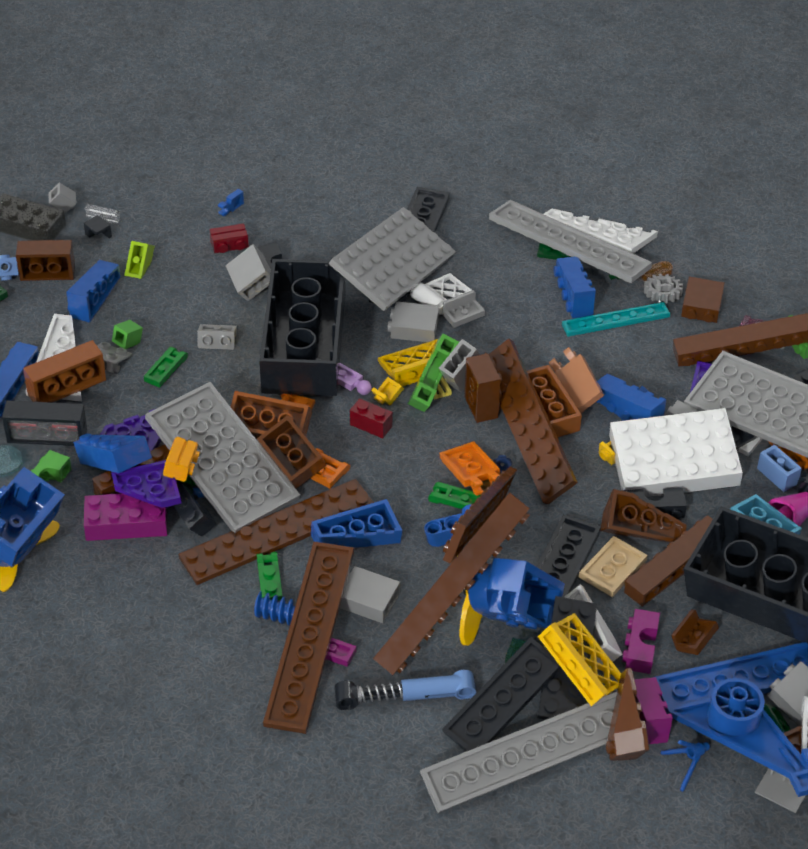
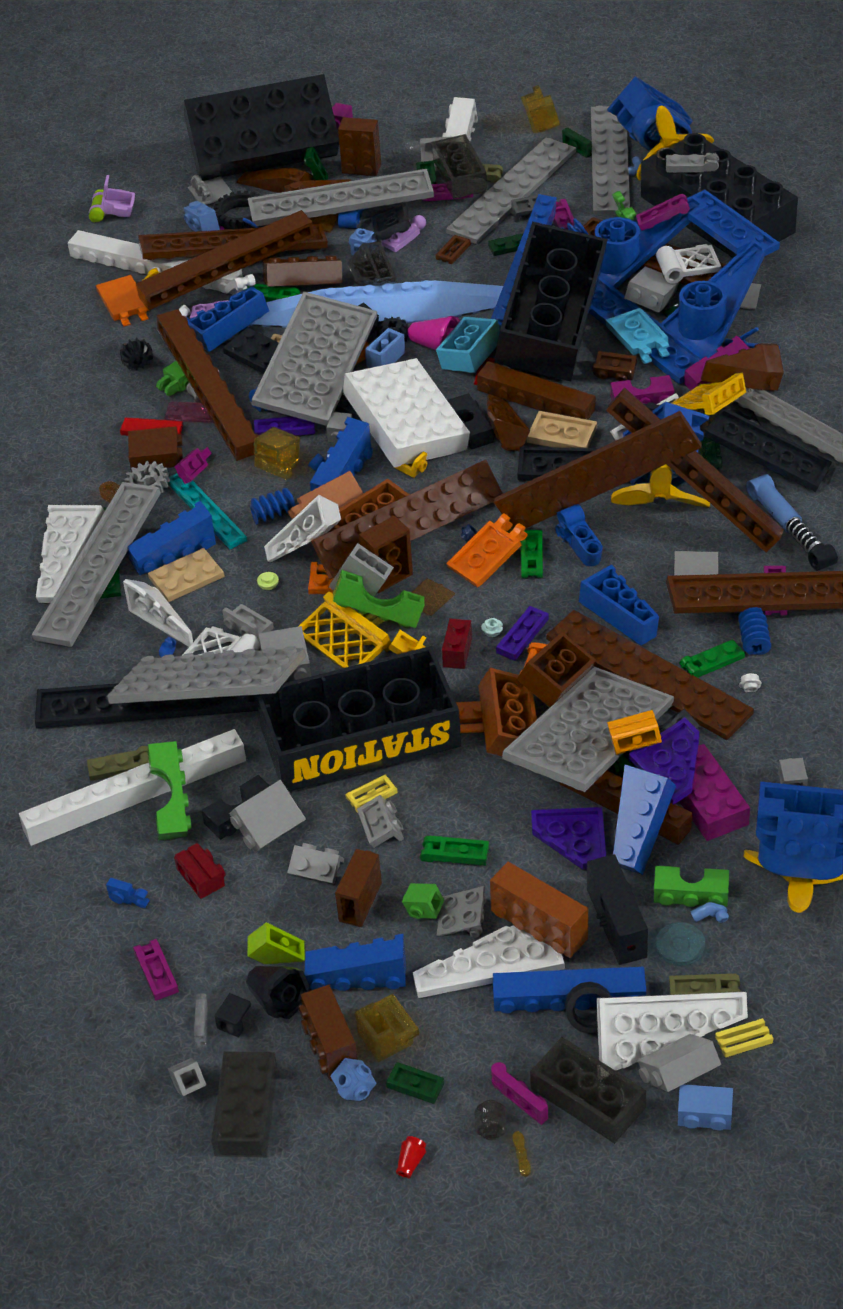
camera: 105 degrees left, 0 degrees up
(34, 288) = (385, 1027): none -> clear yellow plate
(101, 246) = (278, 989): none -> black cone
(108, 576) = (792, 772): none -> light grey brick
(155, 300) = (358, 887): none -> reddish brown brick
(164, 205) = (156, 970): none -> magenta plate
(202, 295) = (315, 864): none -> light grey bracket
(226, 589) = (750, 682): none -> white plate
(252, 349) = (385, 791): none -> light yellow tile
(316, 222) = (164, 762): none -> bright green arch
(322, 209) = (127, 789): none -> white brick
(356, 223) = (115, 764): none -> olive plate
(365, 464) = (522, 633): none -> dark purple plate
(384, 450) = (492, 627): none -> light aqua plate
(443, 424) = (434, 595): none -> clear orange piece
(459, 266) = (167, 647): none -> blue arm
(504, 261) = (154, 608): none -> white wedge
(509, 333) = (267, 580): none -> yellowish green plate
(535, 351) = (308, 525): none -> white wedge
(540, 293) = (186, 574): none -> tan plate
(594, 350) = (271, 504): none -> blue piece
(658, 362) = (277, 452): none -> clear yellow plate
(668, 315) = (192, 464): none -> magenta hinge
(730, 660) = (639, 334): none -> medium azure tile
(737, 307) = (132, 424): none -> red tile

